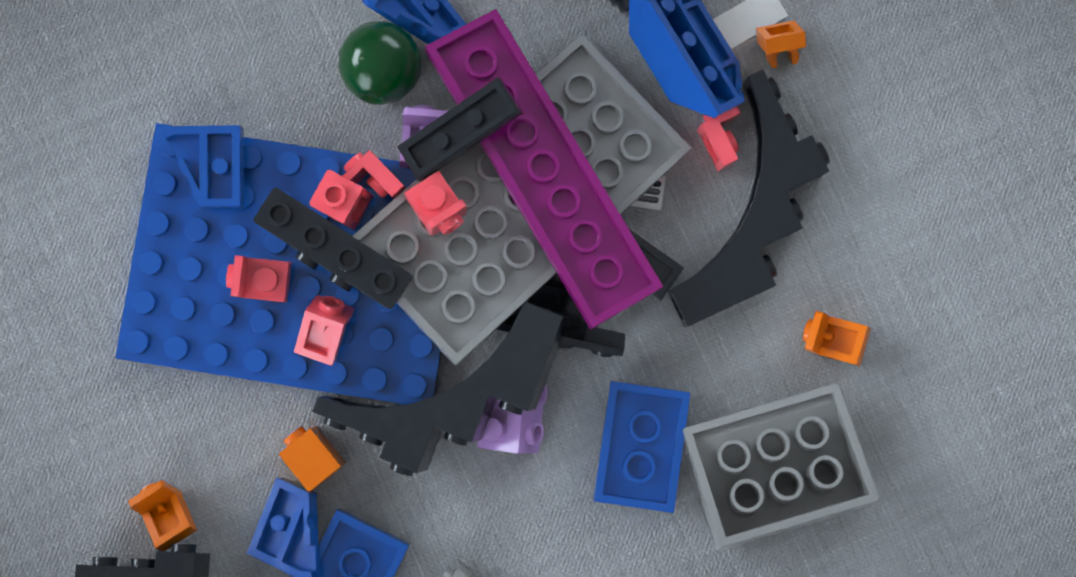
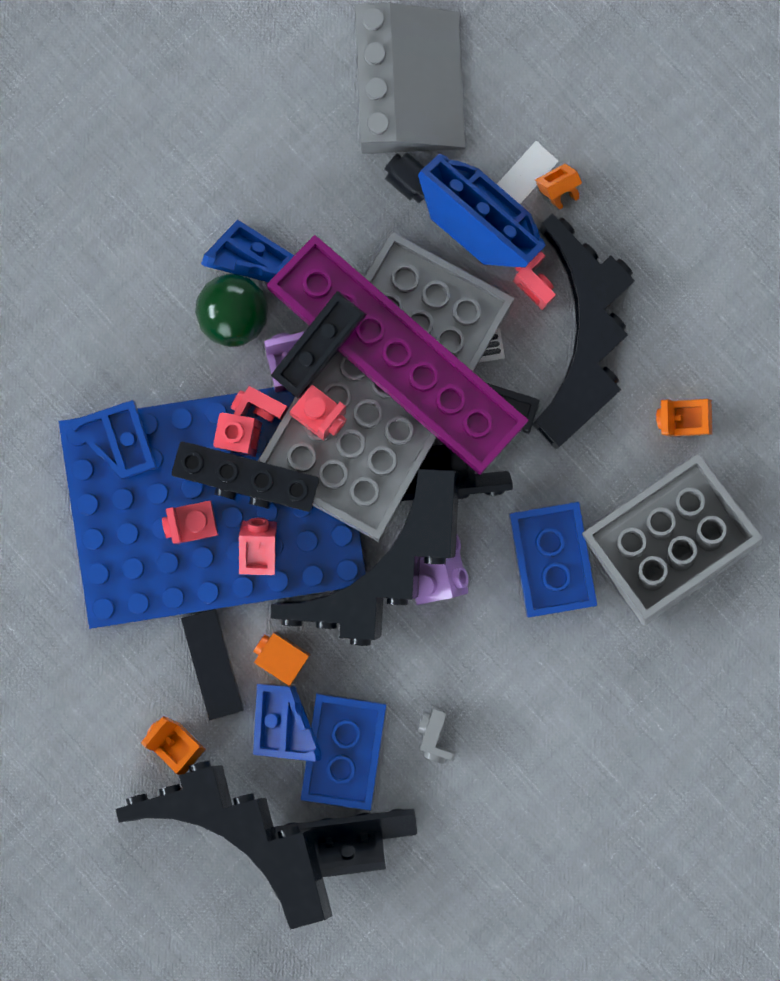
camera: 20 degrees left, 0 degrees up
(236, 440) = (212, 664): none -> black tile

